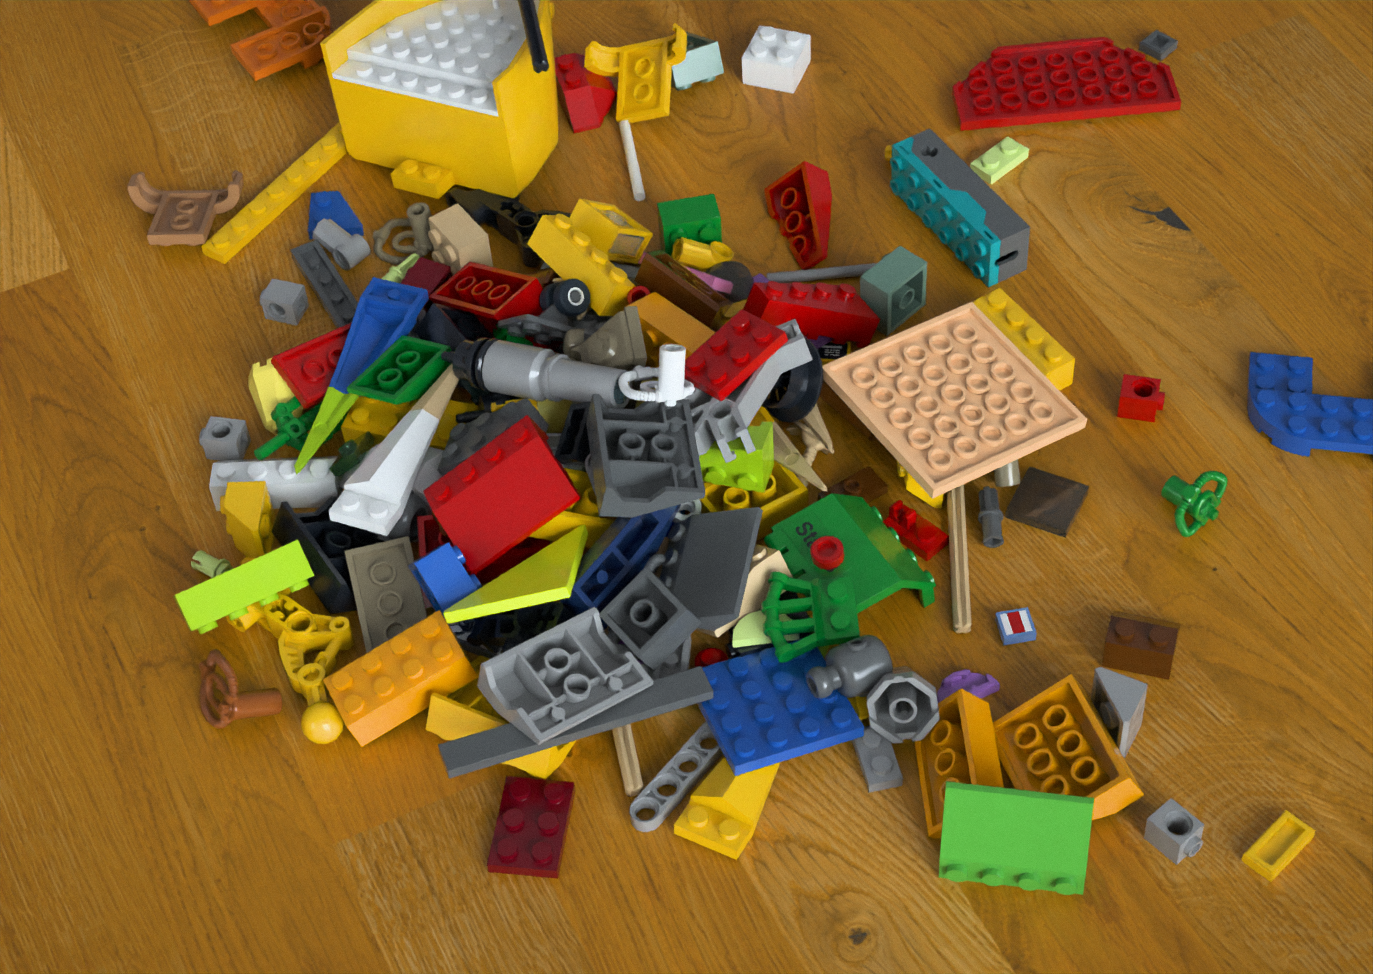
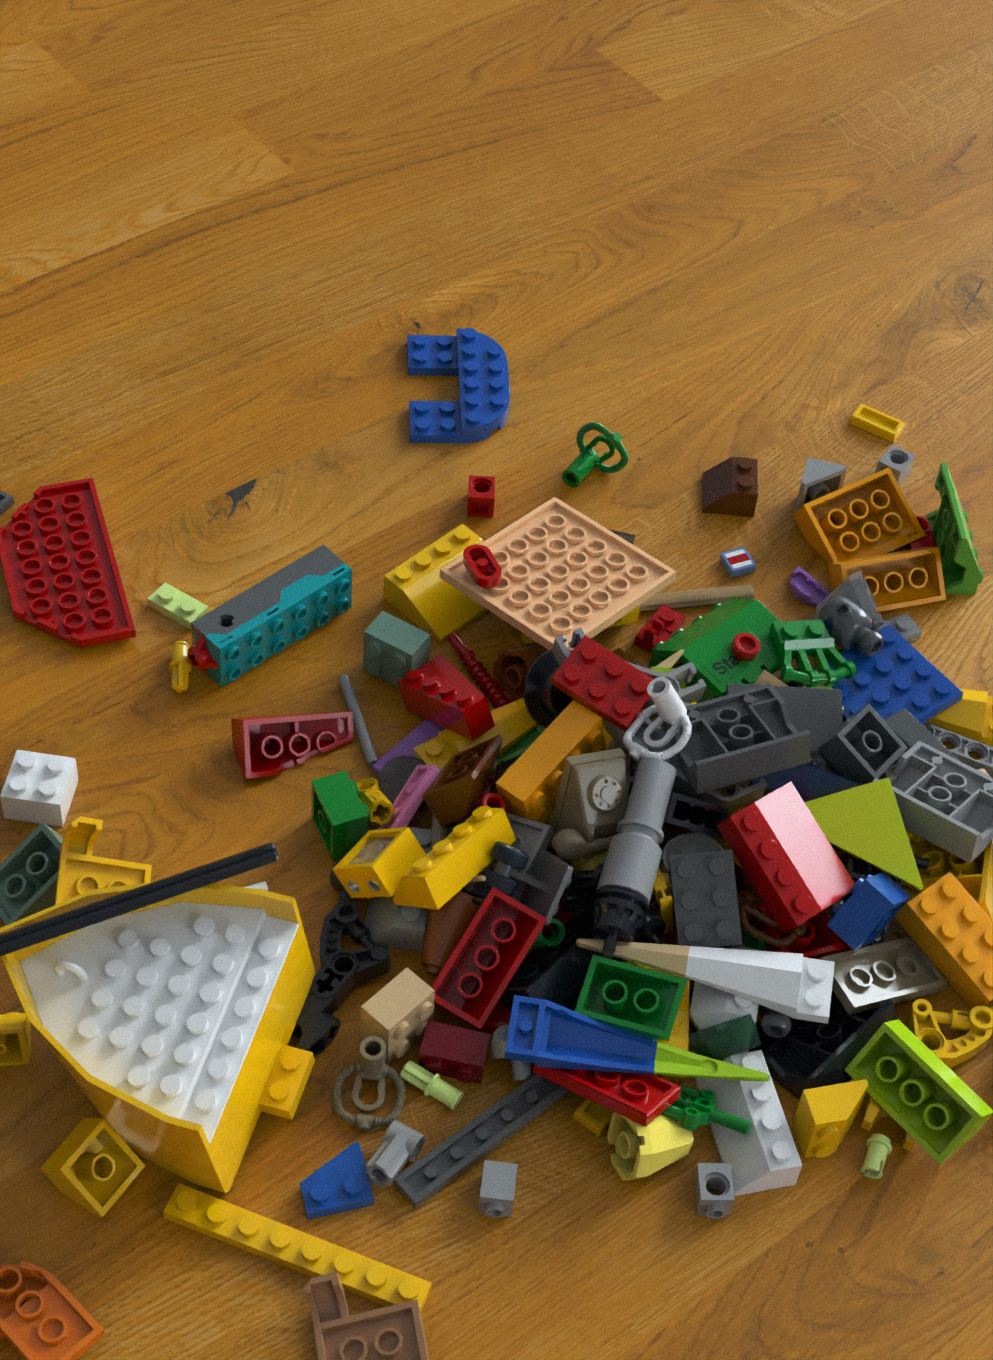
camera: 110 degrees left, 0 degrees up
(958, 322) = (482, 566): none -> red plate

